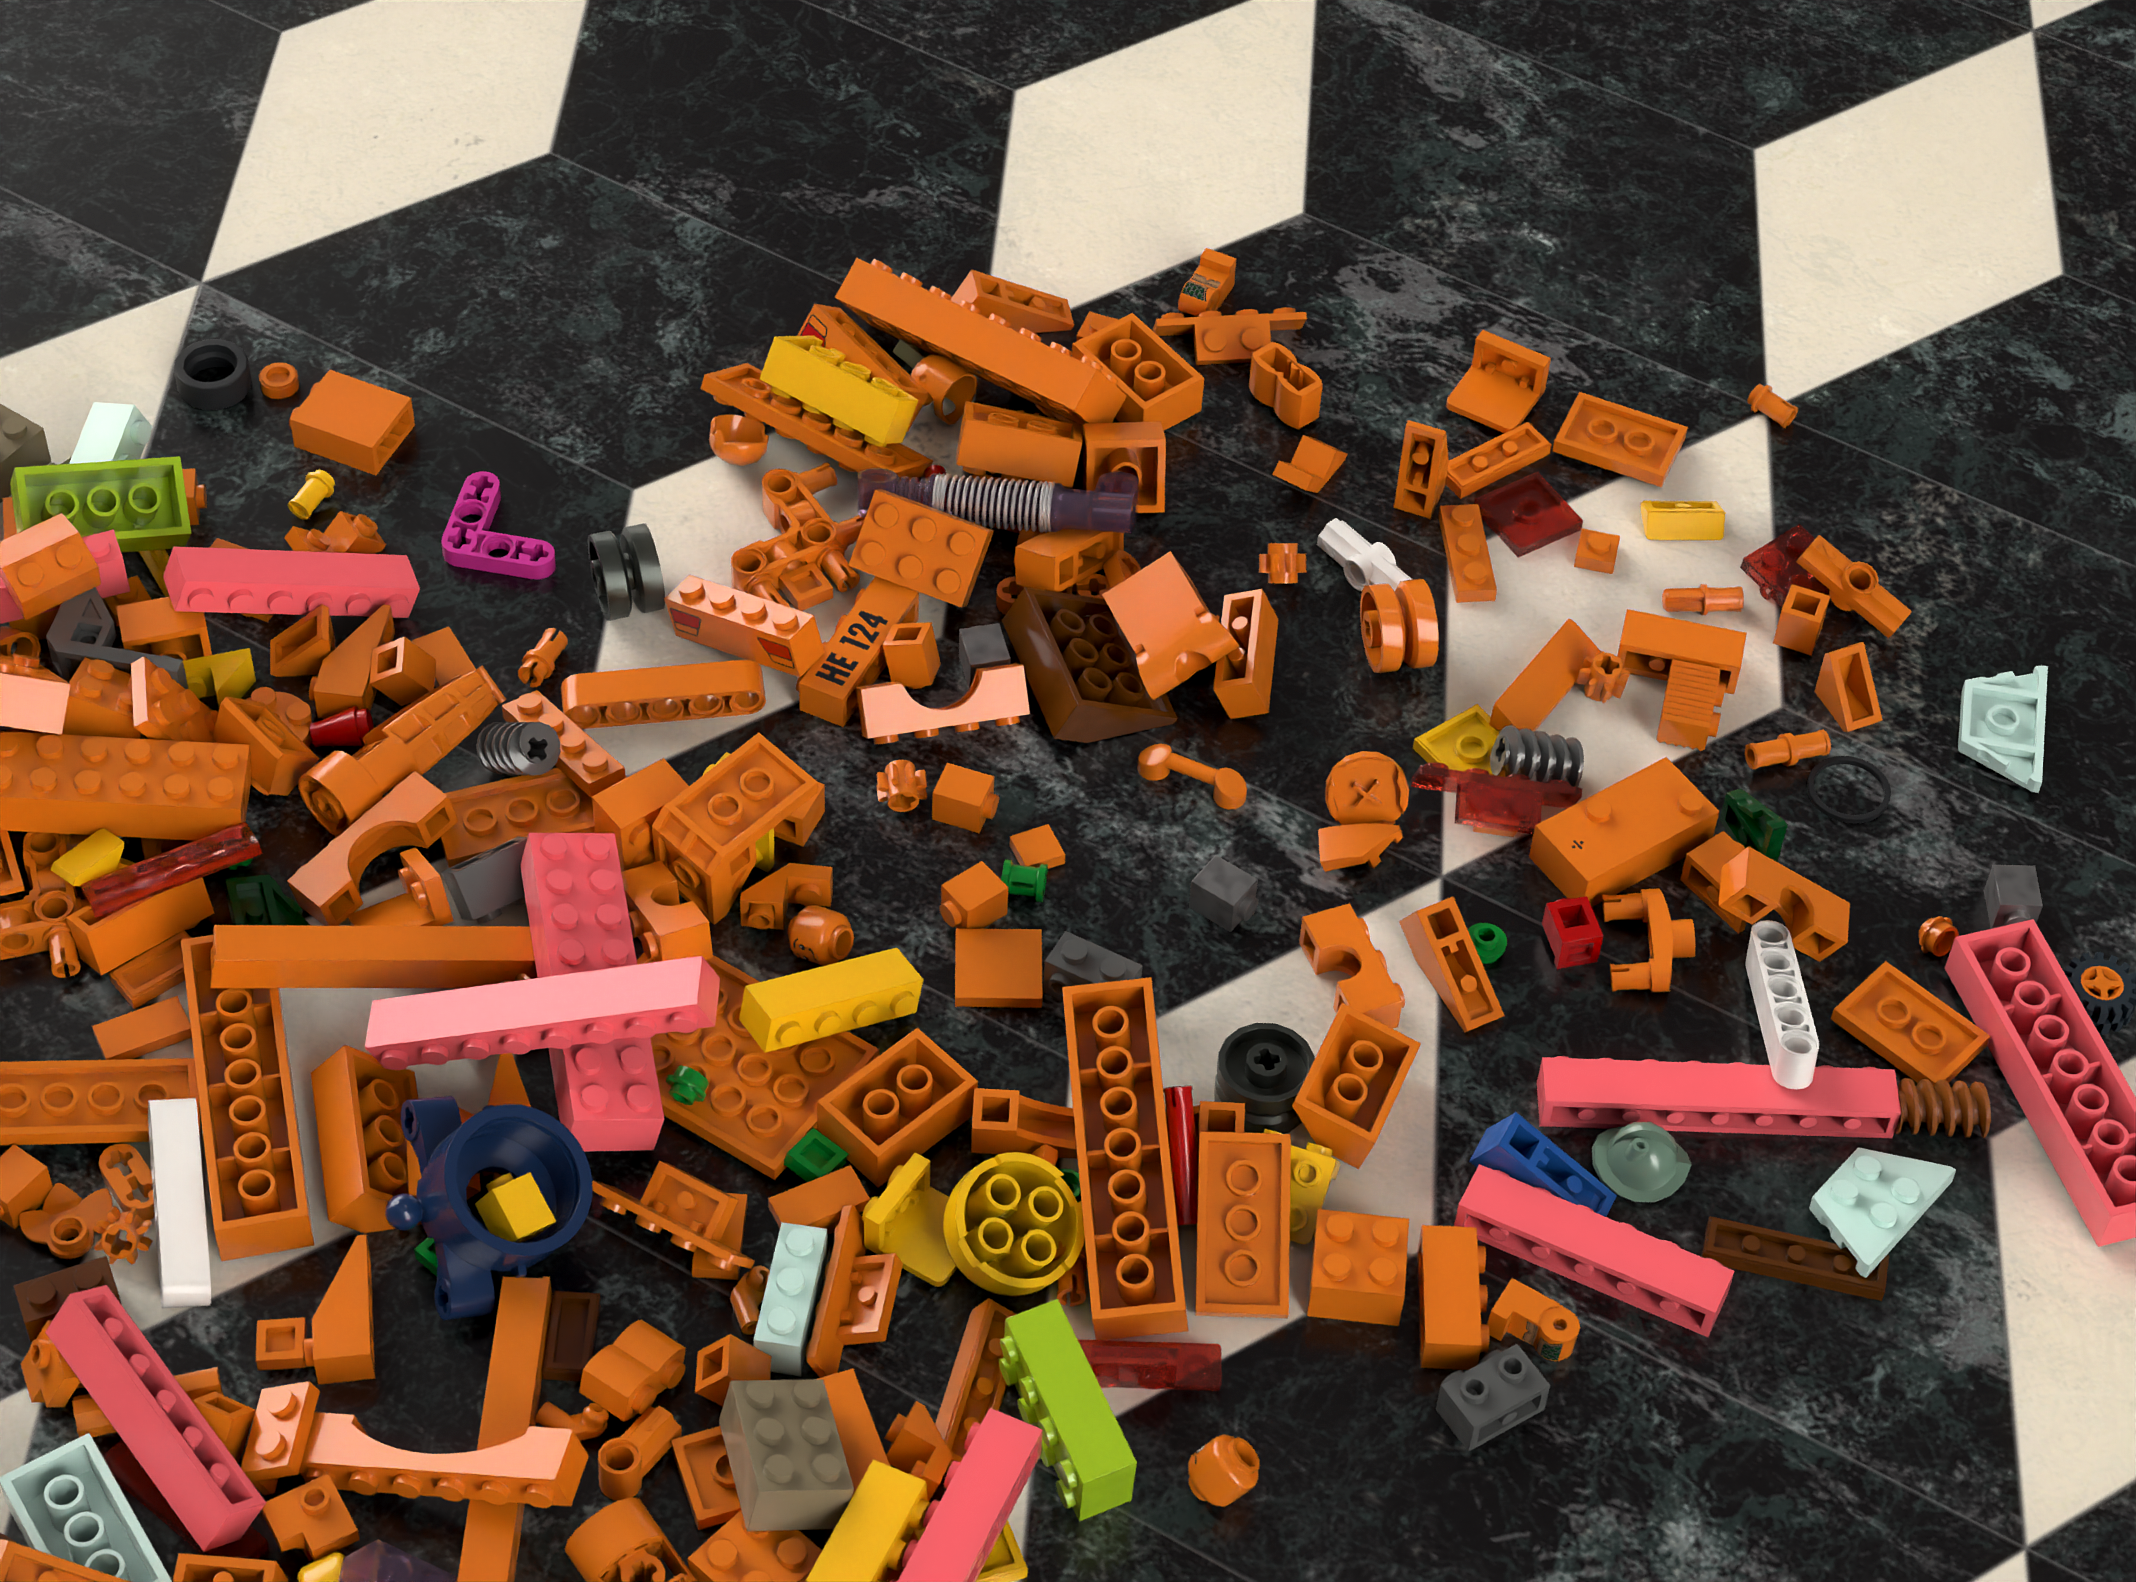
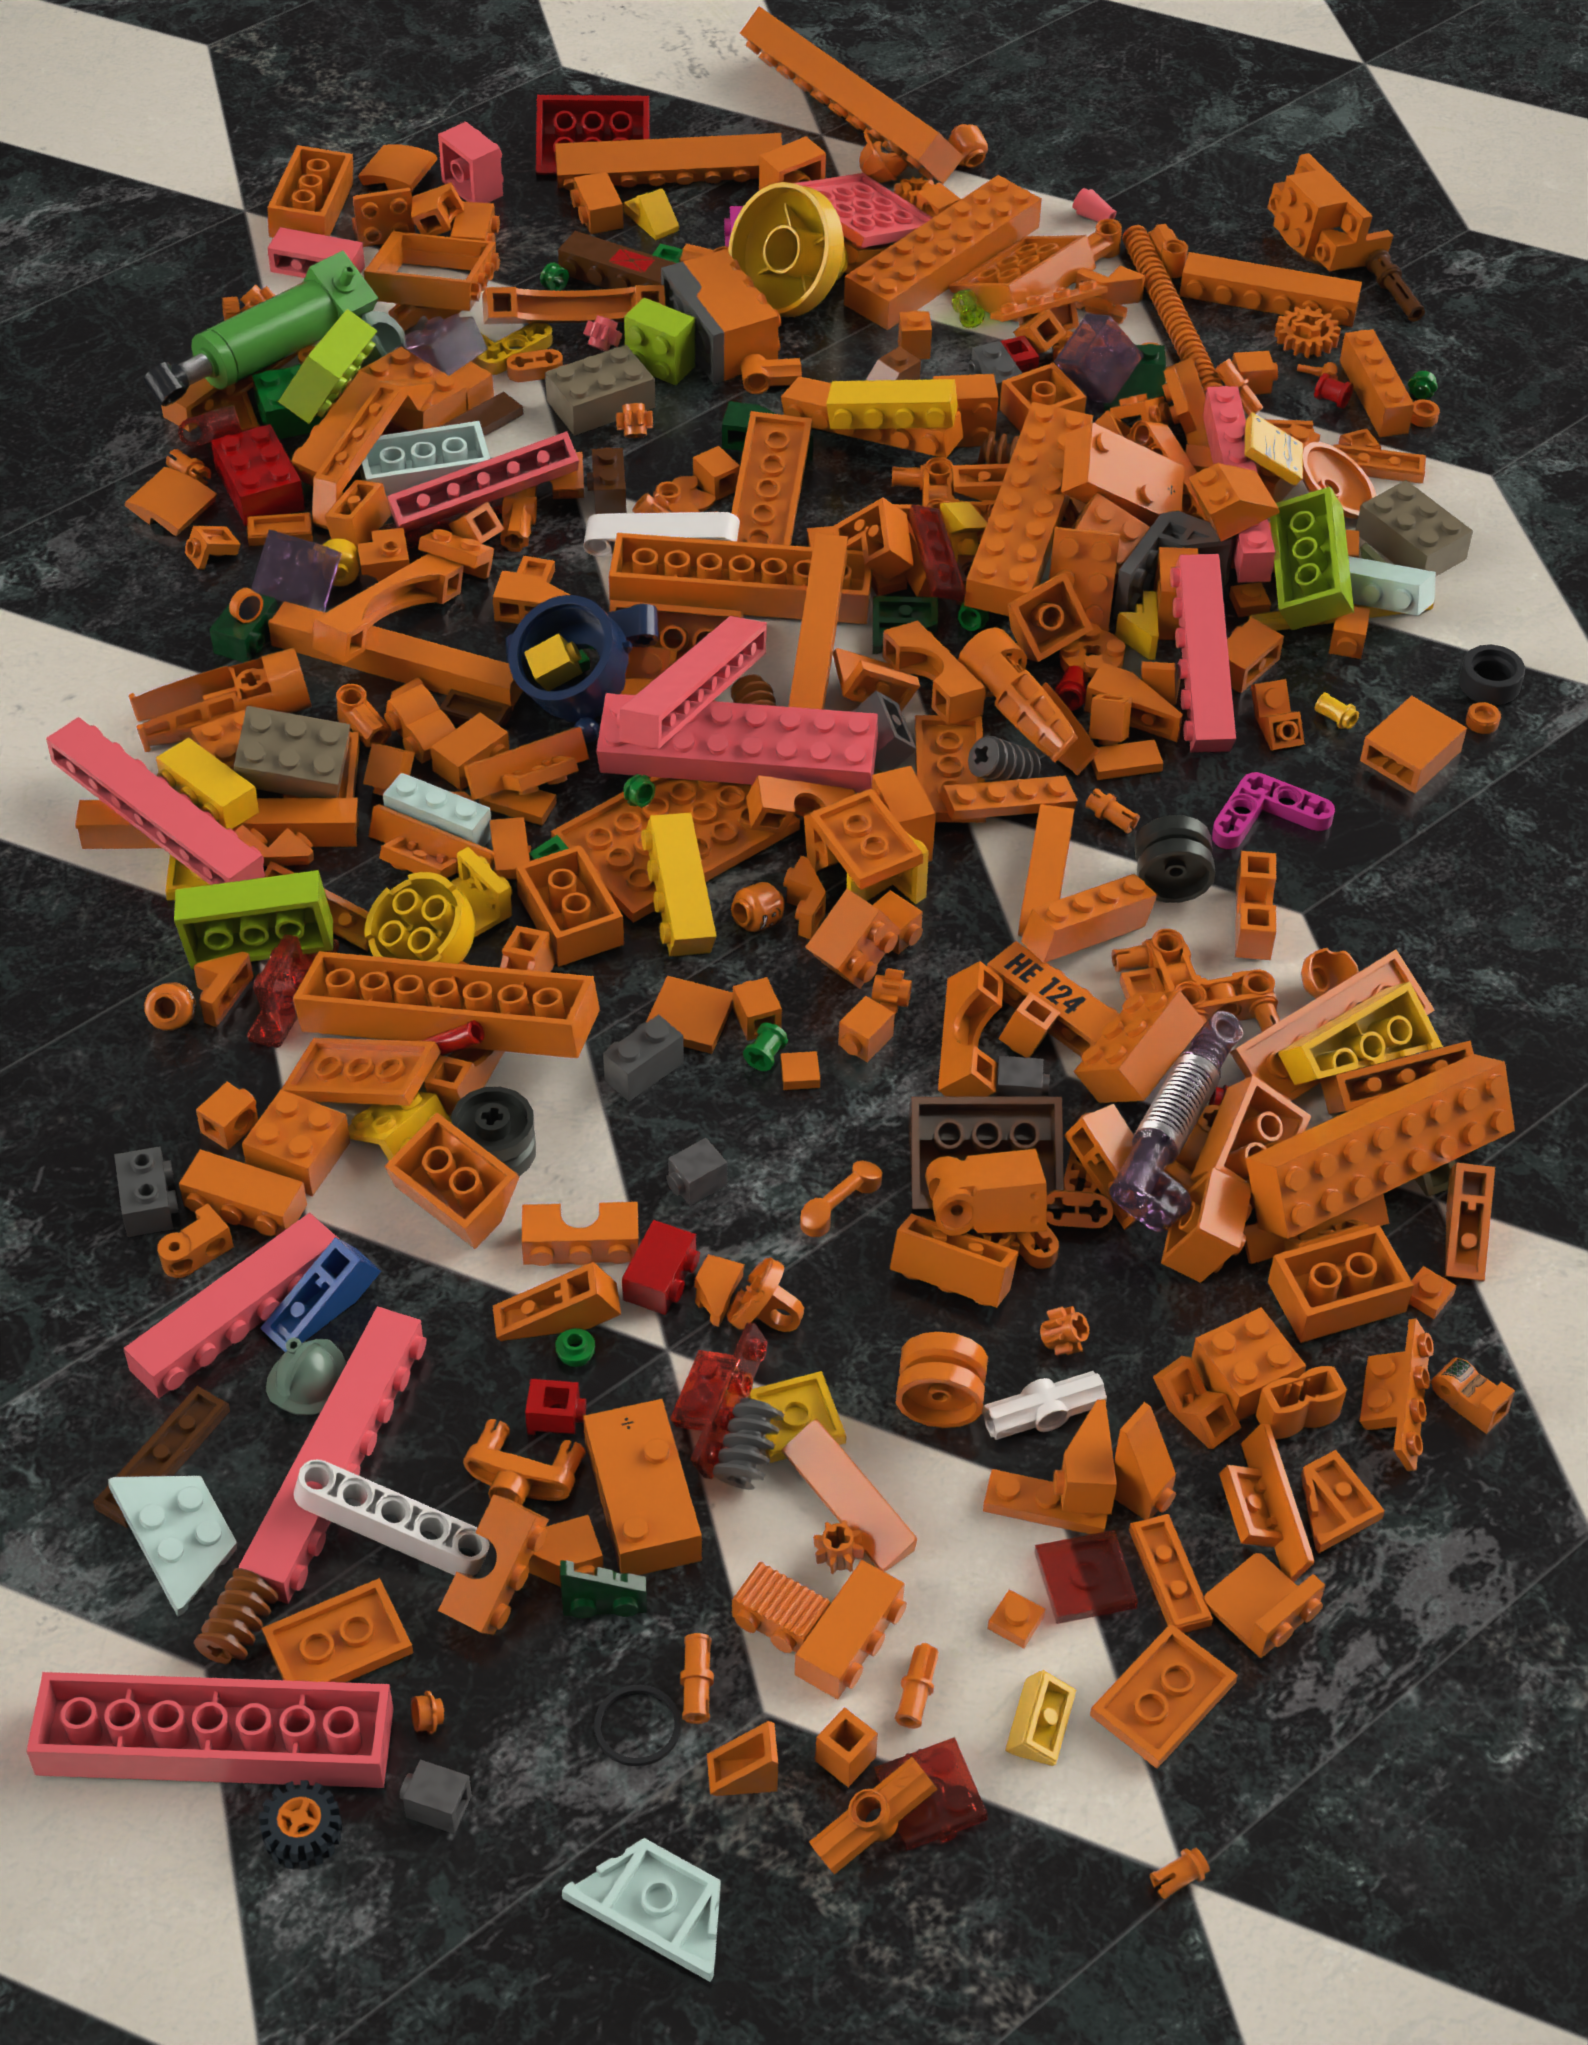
camera: 110 degrees right, 0 degrees up
(151, 933) = (882, 536): none -> orange brick
(662, 1298) = (467, 744): none -> orange brick
(690, 507) = (1254, 905): none -> orange arch
(866, 808) = (854, 939): none -> orange brick
(1161, 1430) = (222, 984): none -> orange slope
(1254, 430) = (1244, 1359): none -> orange brick
(1347, 1354) = (227, 1115): none -> orange brick
(1366, 360) = (1337, 1501): none -> orange wing
(1370, 887) = (660, 1267): none -> red brick
(1393, 399) = (1265, 1503): none -> orange bracket
(1427, 511) = (1088, 1469): none -> orange slope

